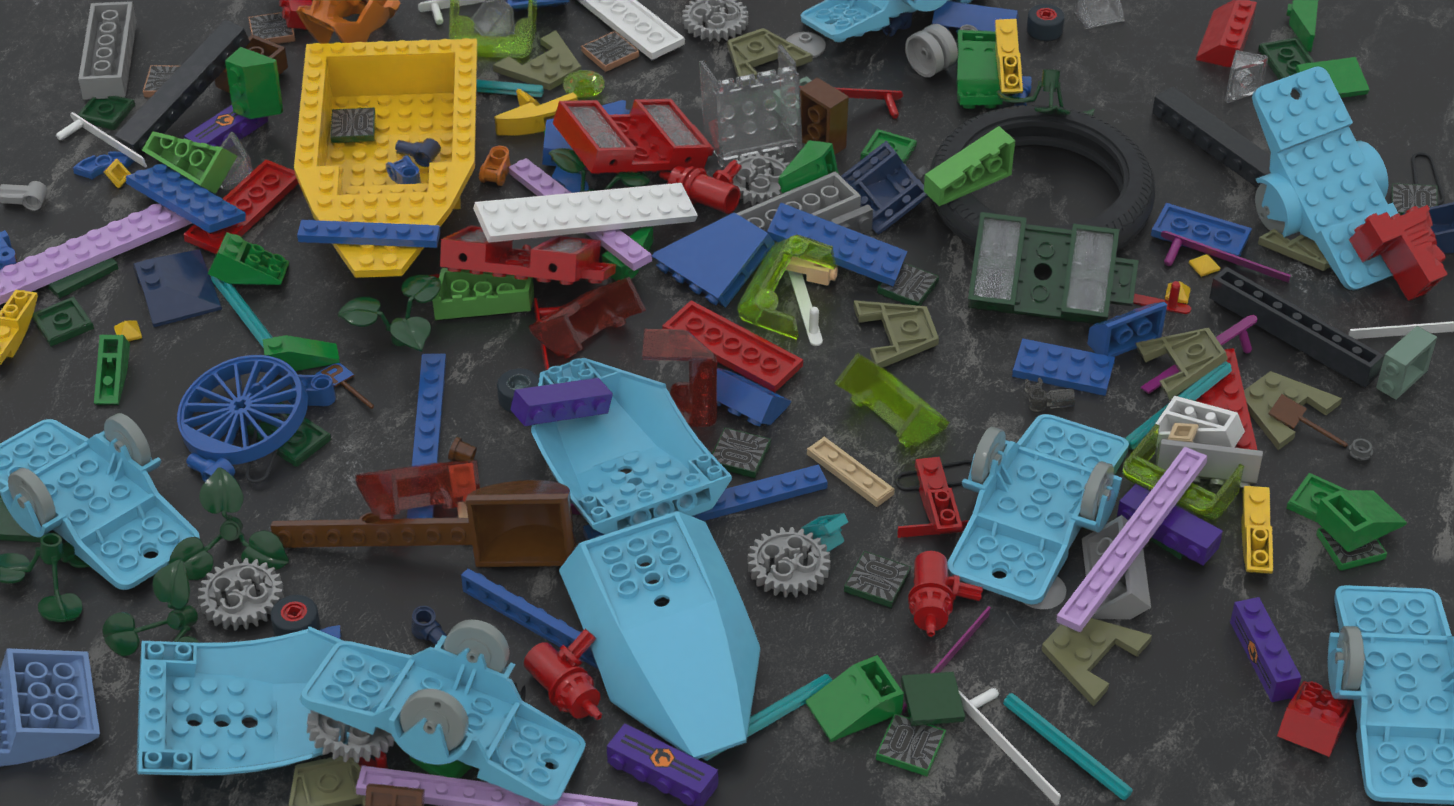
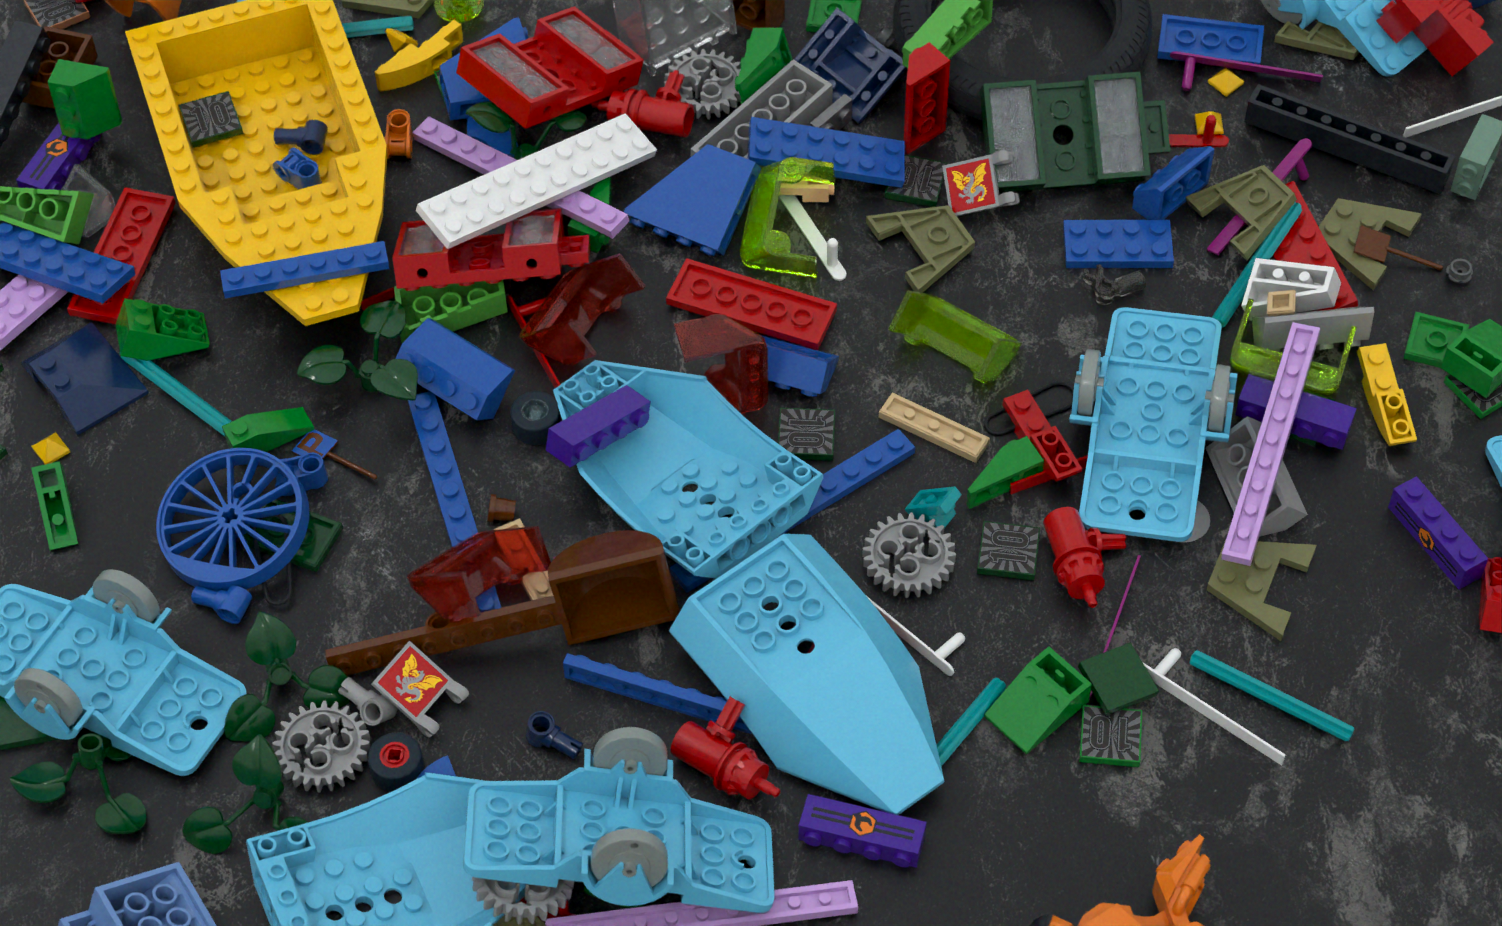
camera: 15 degrees left, 10 degrees up
(292, 571) = (367, 702): none -> light grey pin
(334, 562) = (414, 684): none -> flag
(467, 340) = (457, 370): none -> blue slope
(782, 647) = (936, 657): none -> white piece
(900, 511) = (1012, 463): none -> green slope
(930, 217) = (925, 96): none -> red slope
(952, 294) = (974, 185): none -> flag

